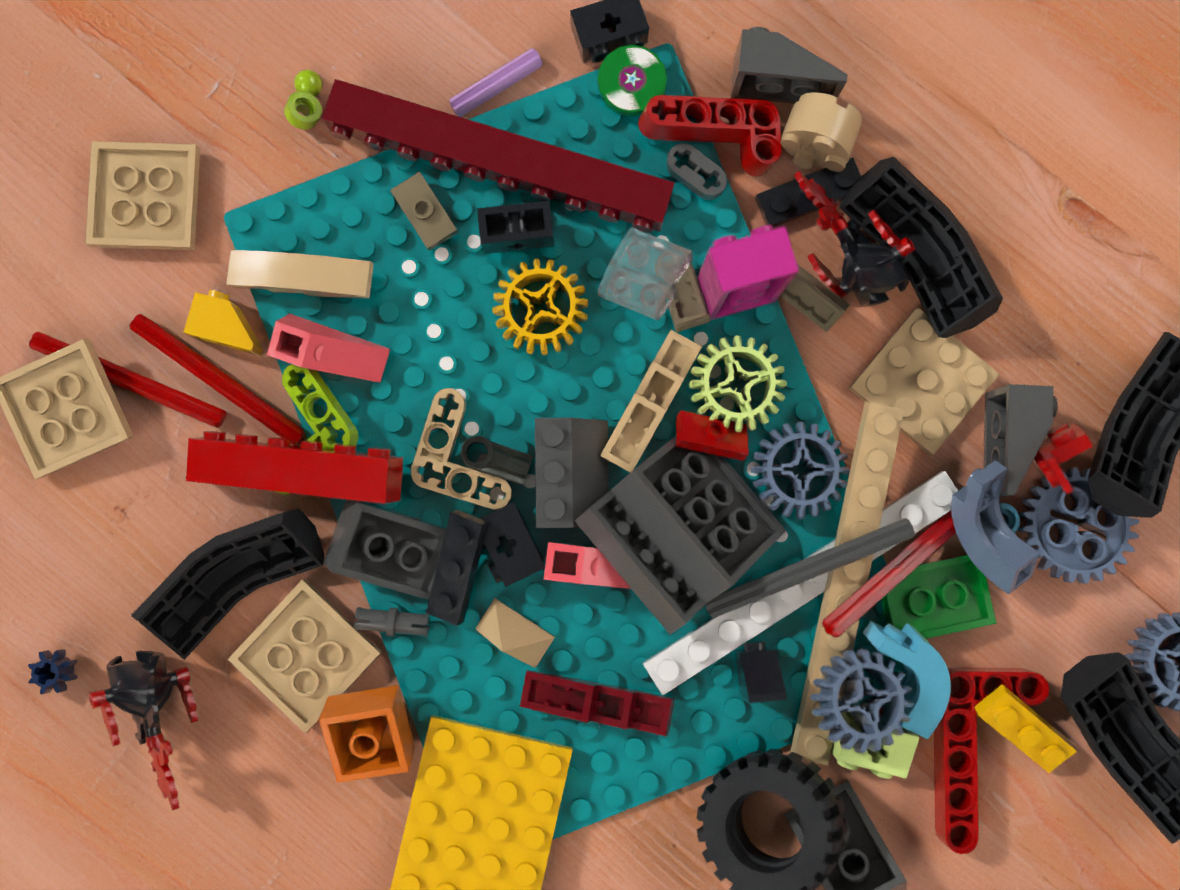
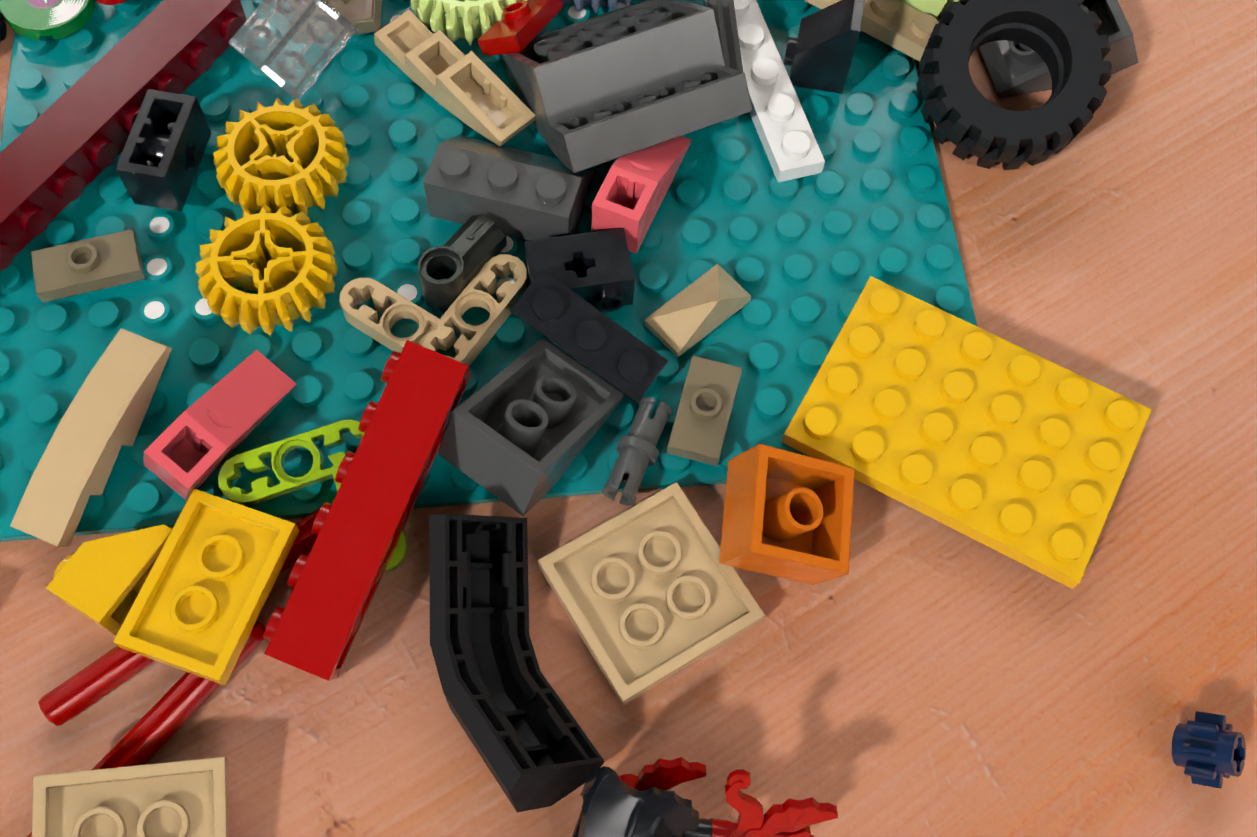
camera: 80 degrees left, 20 degrees down
(223, 386) = (207, 586): none -> yellow plate
(436, 658) = (704, 410): none -> dark tan plate
(440, 303) = (250, 252): none -> yellow gear
(597, 702) = (814, 235): dark red slope -> none

